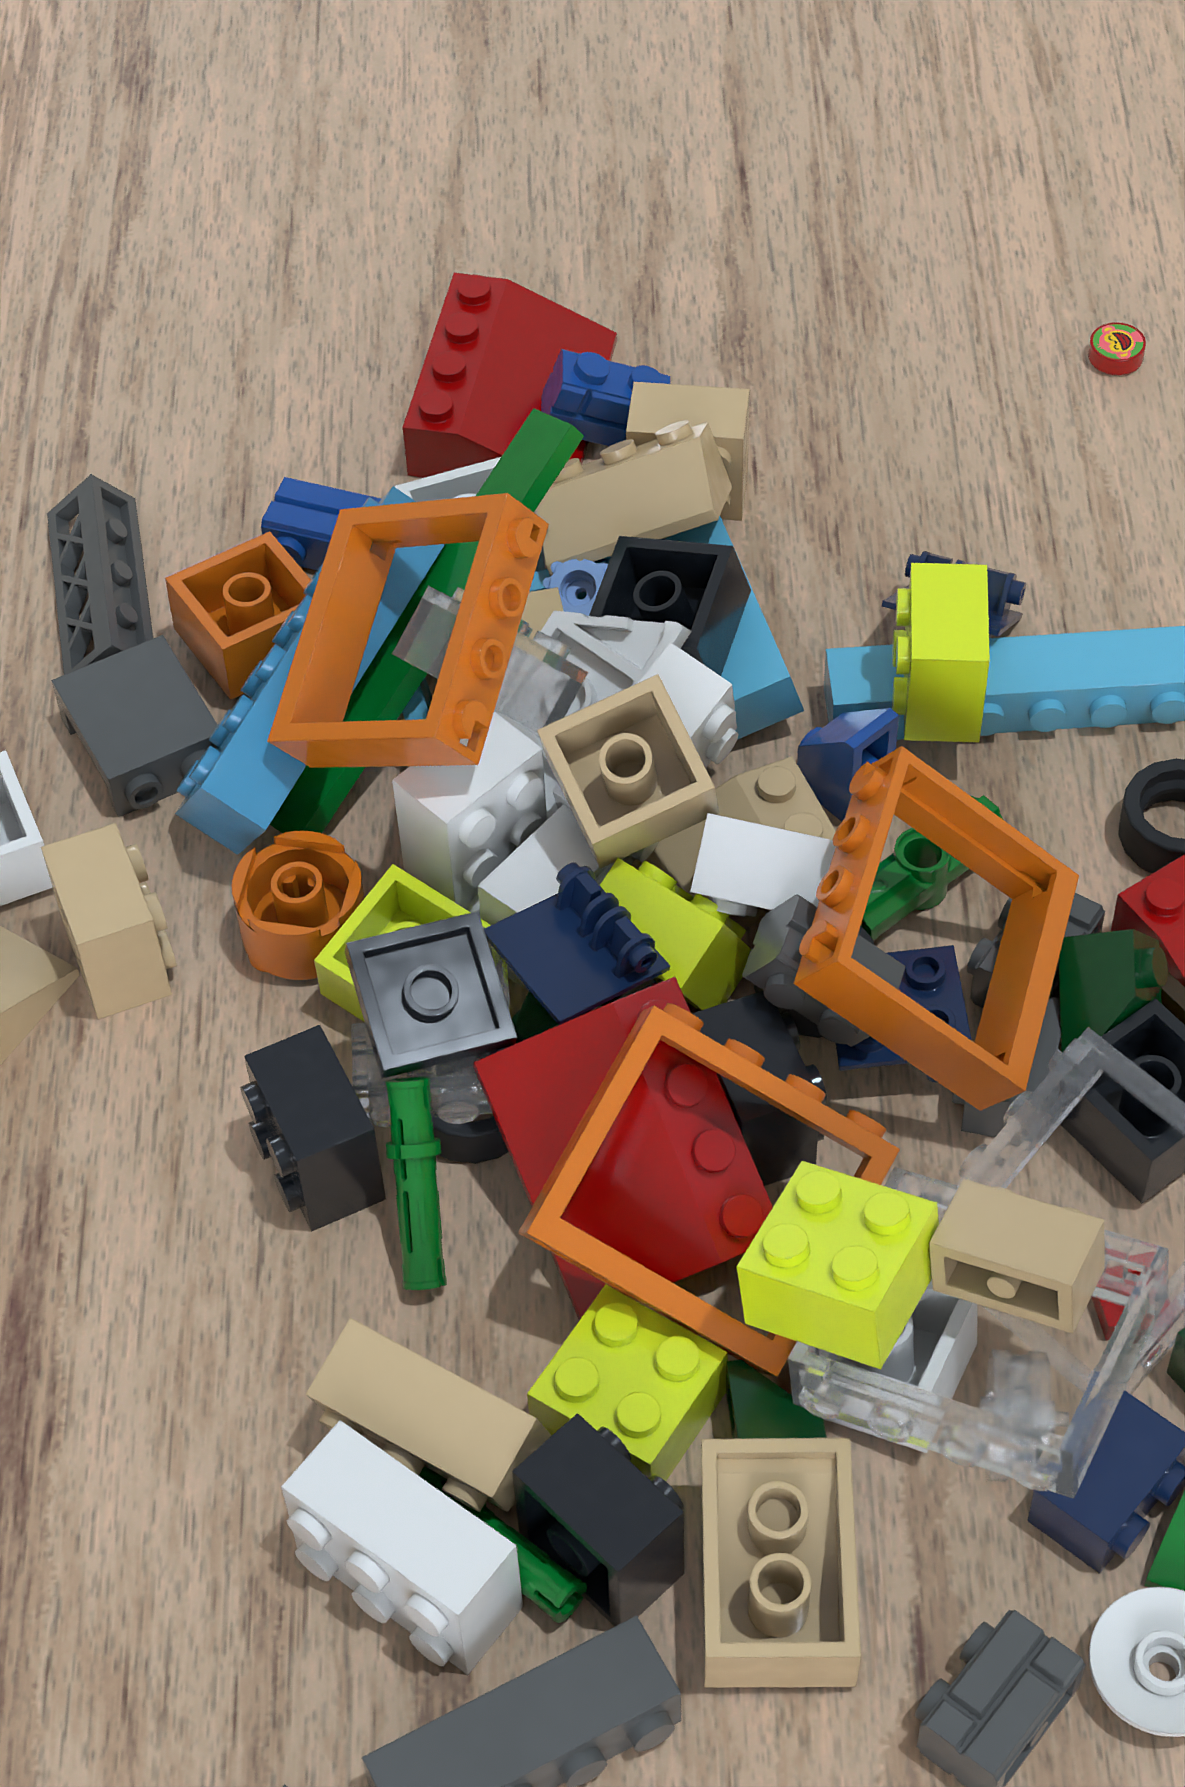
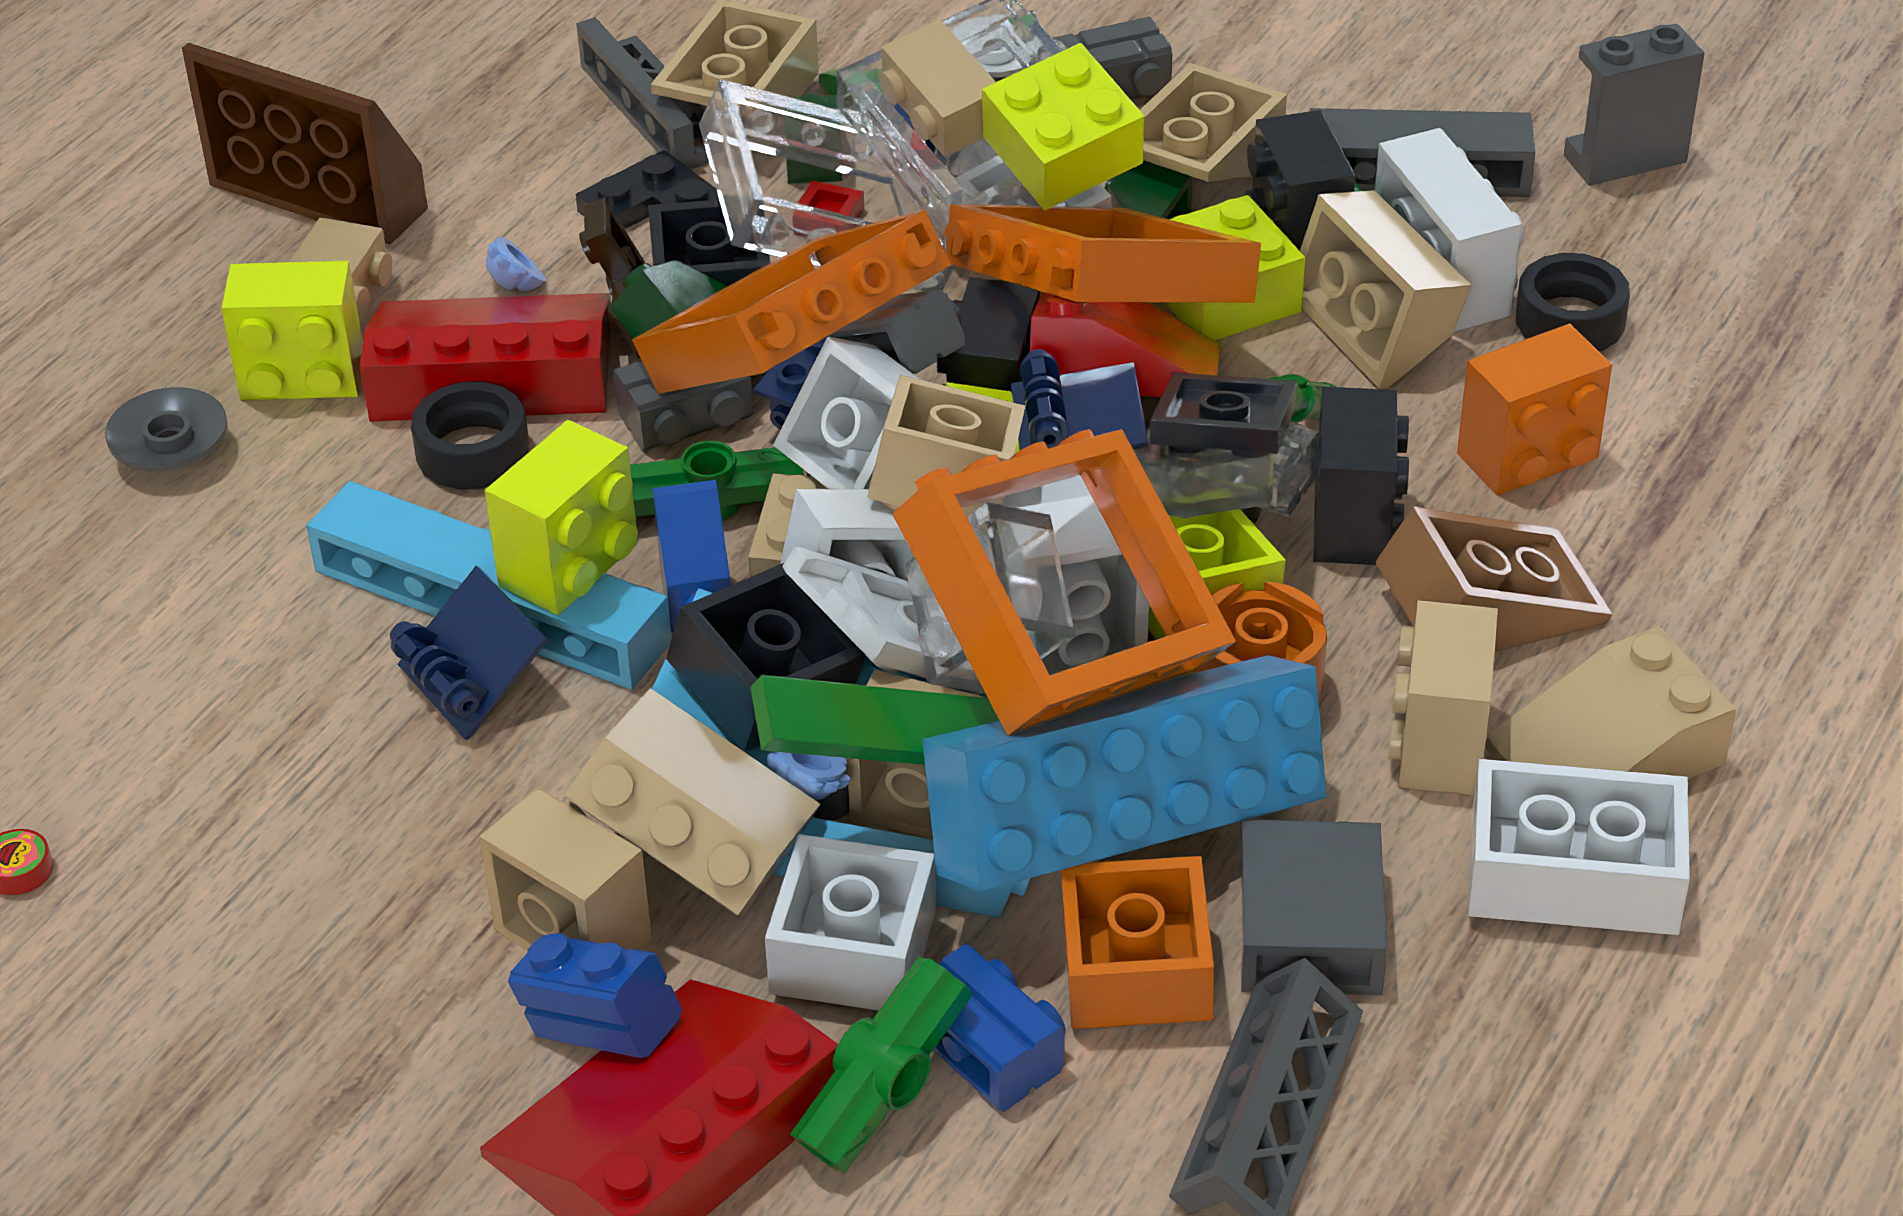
camera: 150 degrees left, 10 degrees down
(133, 1111) = (1493, 565): none -> medium nougat slope
(175, 1306) = (1533, 409): none -> orange brick
(200, 1512) = (1578, 277): none -> black tyre
(368, 445) = (881, 1064): none -> green piece

